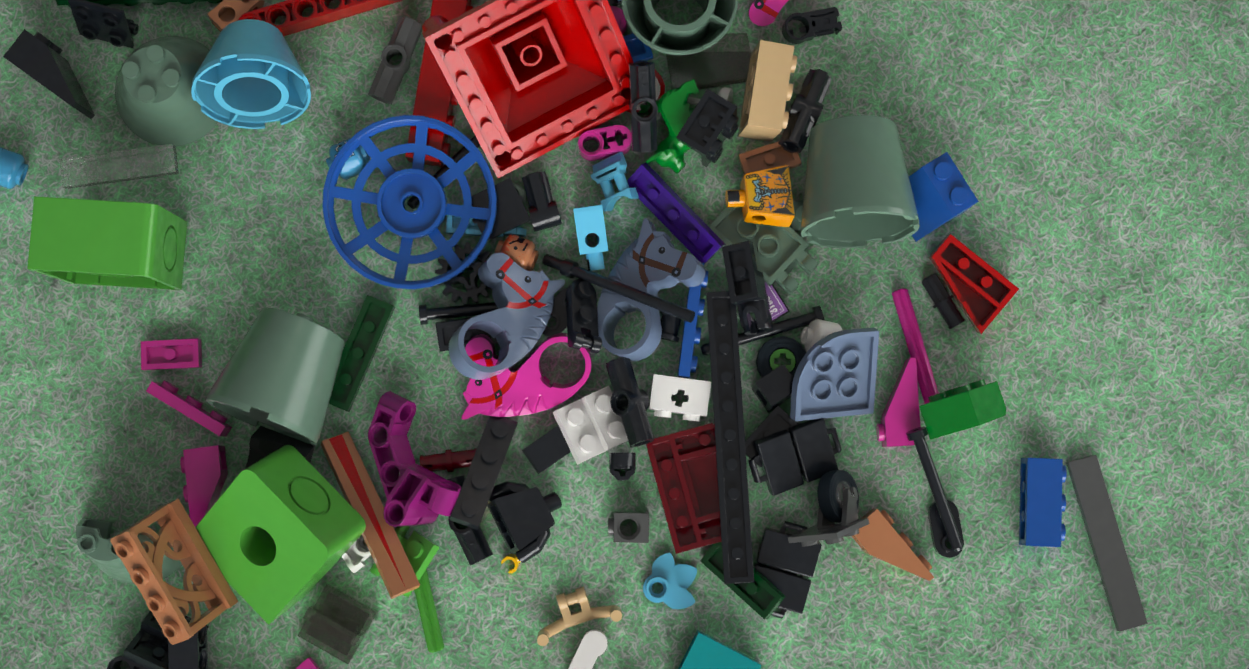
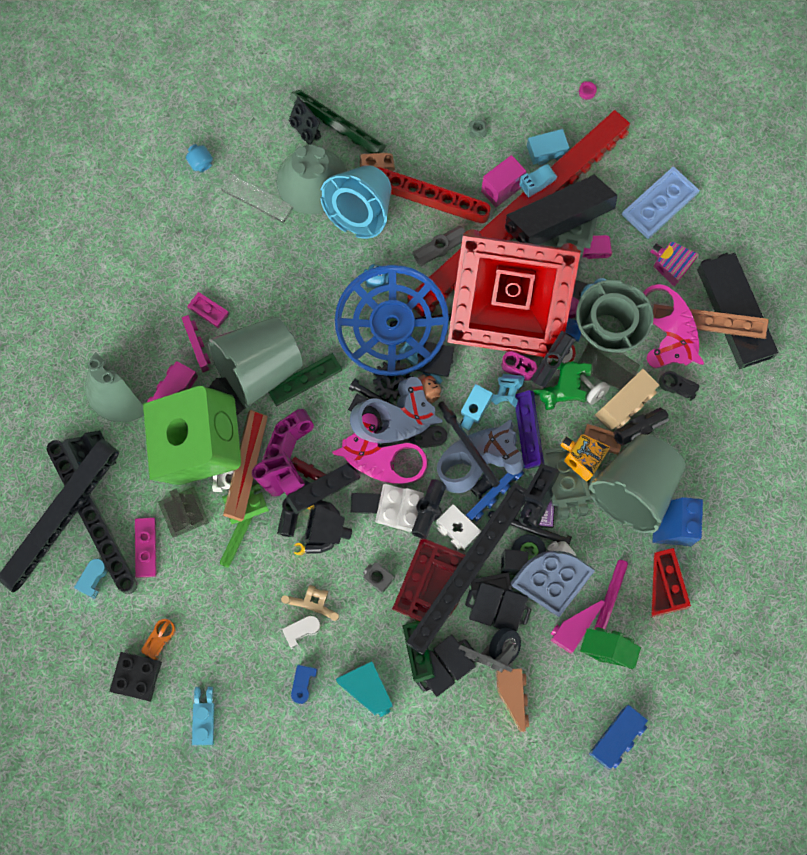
camera: 35 degrees right, 10 degrees down
(43, 62) = (259, 120): black slope -> none
(107, 243) = (222, 228): bright green piece -> none
(200, 568) = (108, 421): nougat fence -> none
(542, 207) = (460, 374): black piece -> none
(582, 316) = (437, 445): black plate -> none
(622, 461) = (400, 535): black connector -> none
(674, 581) = (380, 625): medium azure plate -> none
(709, 126) = (581, 396): black bracket -> none
(918, 436) = (563, 681): black bar -> none
(938, 531) = (553, 711): black plate -> none
(942, 300) = (643, 585): black axle -> none
(1106, 543) = (639, 790): dark grey tile -> none

